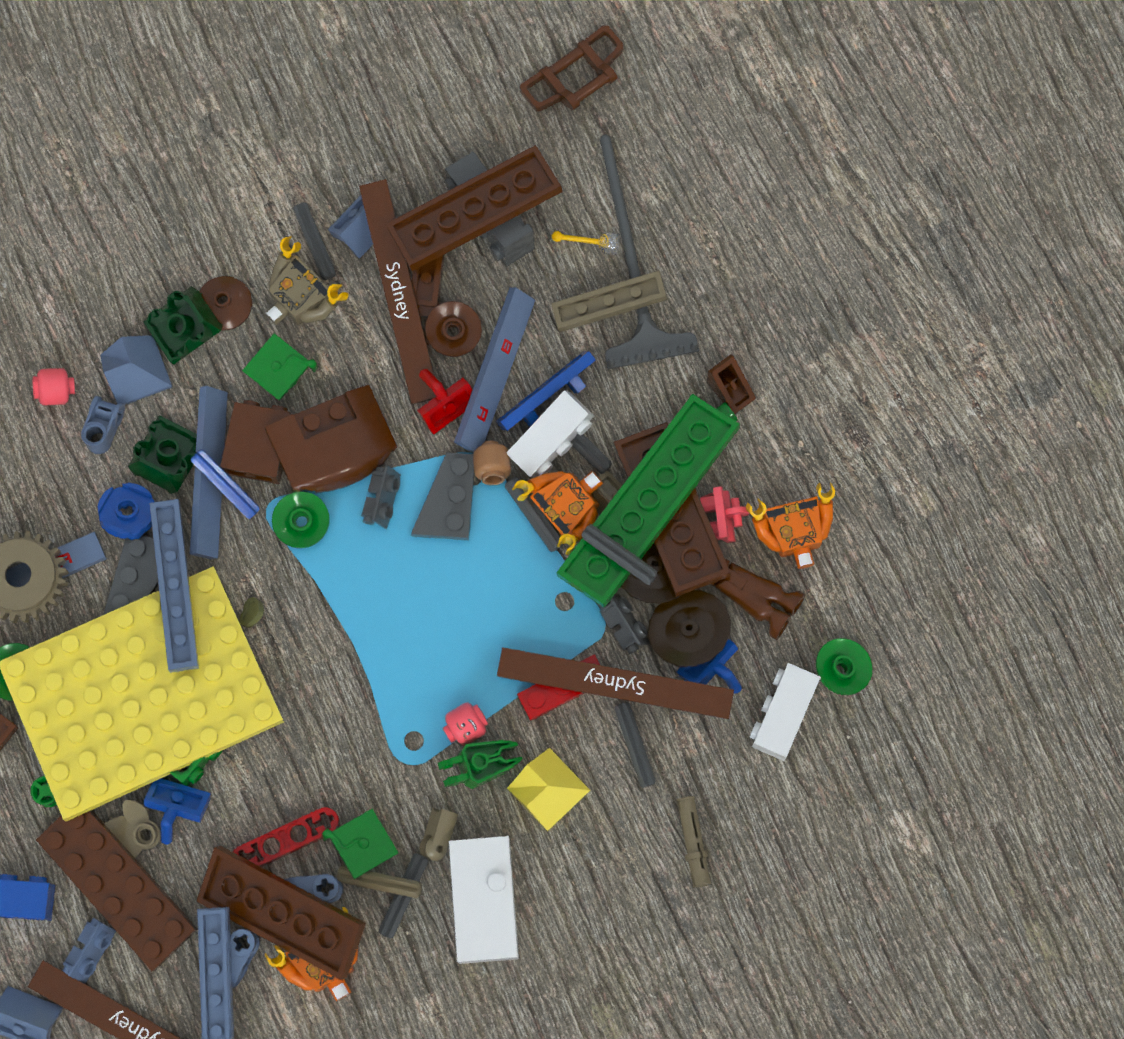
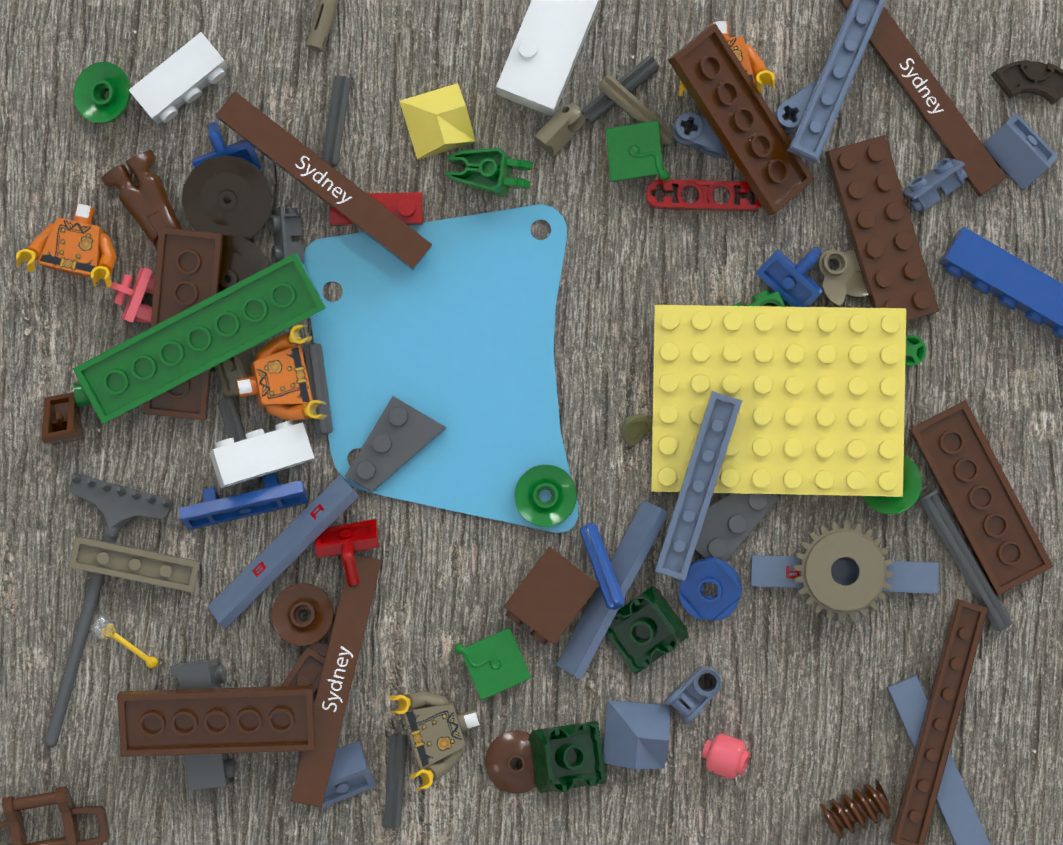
camera: 160 degrees left, 10 degrees up
(333, 442) = (476, 556): reddish brown slope -> none
(384, 484) = (446, 488): dark grey hinge -> none
(465, 724) = (484, 215): coral head -> none
(491, 463) = (332, 457): medium nougat head -> none
(619, 554) = (255, 292): dark grey axle -> none

